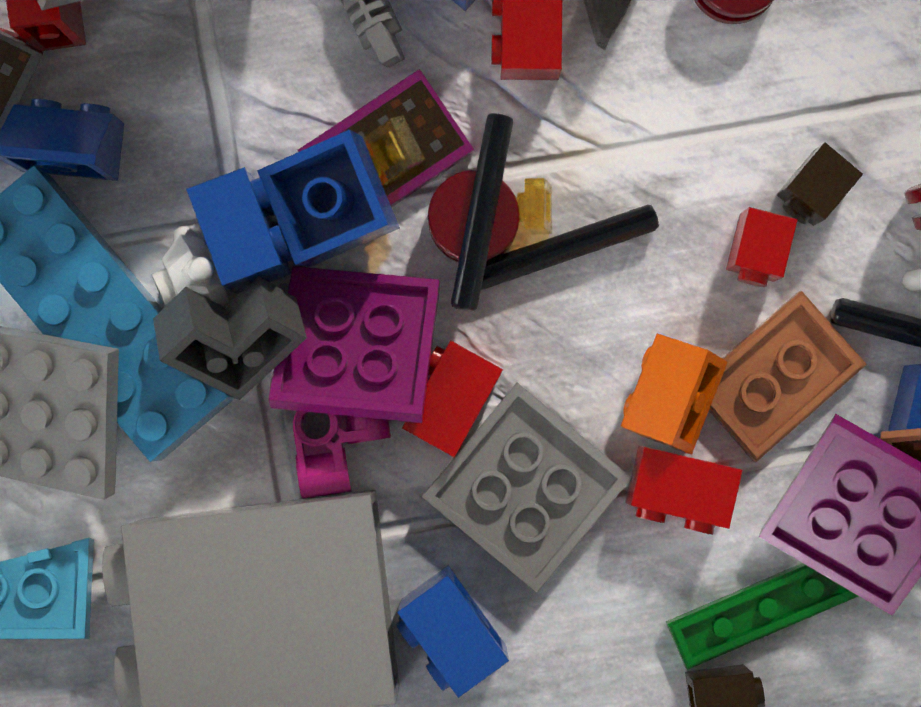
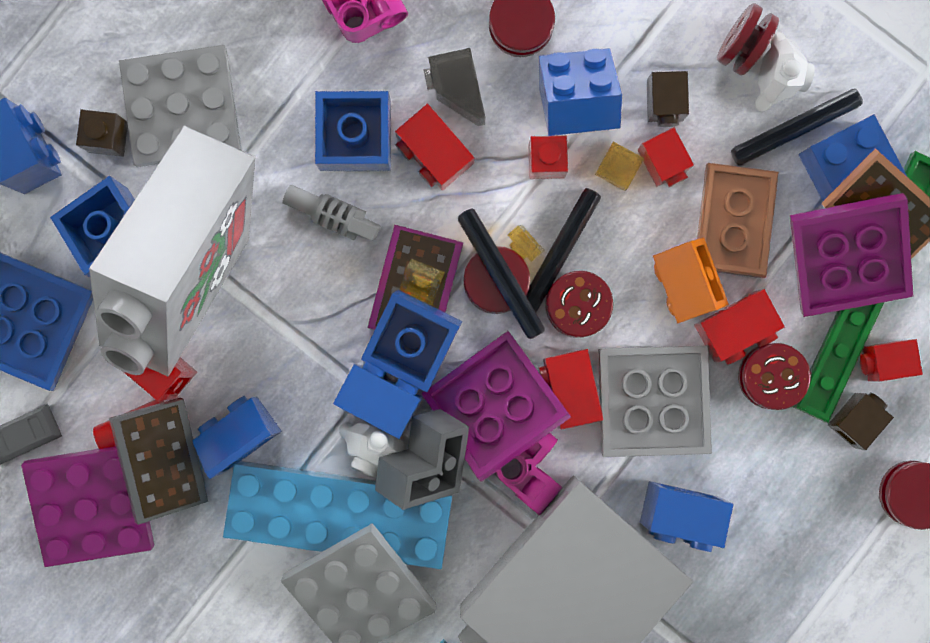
camera: 40 degrees left, 0 degrees up
(537, 317) = (579, 304): none -> dark red head
(638, 137) = (548, 157): none -> red brick
(673, 571) = (774, 376): none -> dark red head
(705, 213) = (619, 166): none -> clear yellow plate
(731, 96) = (580, 91): none -> blue brick
(810, 663) = (891, 360): none -> red brick

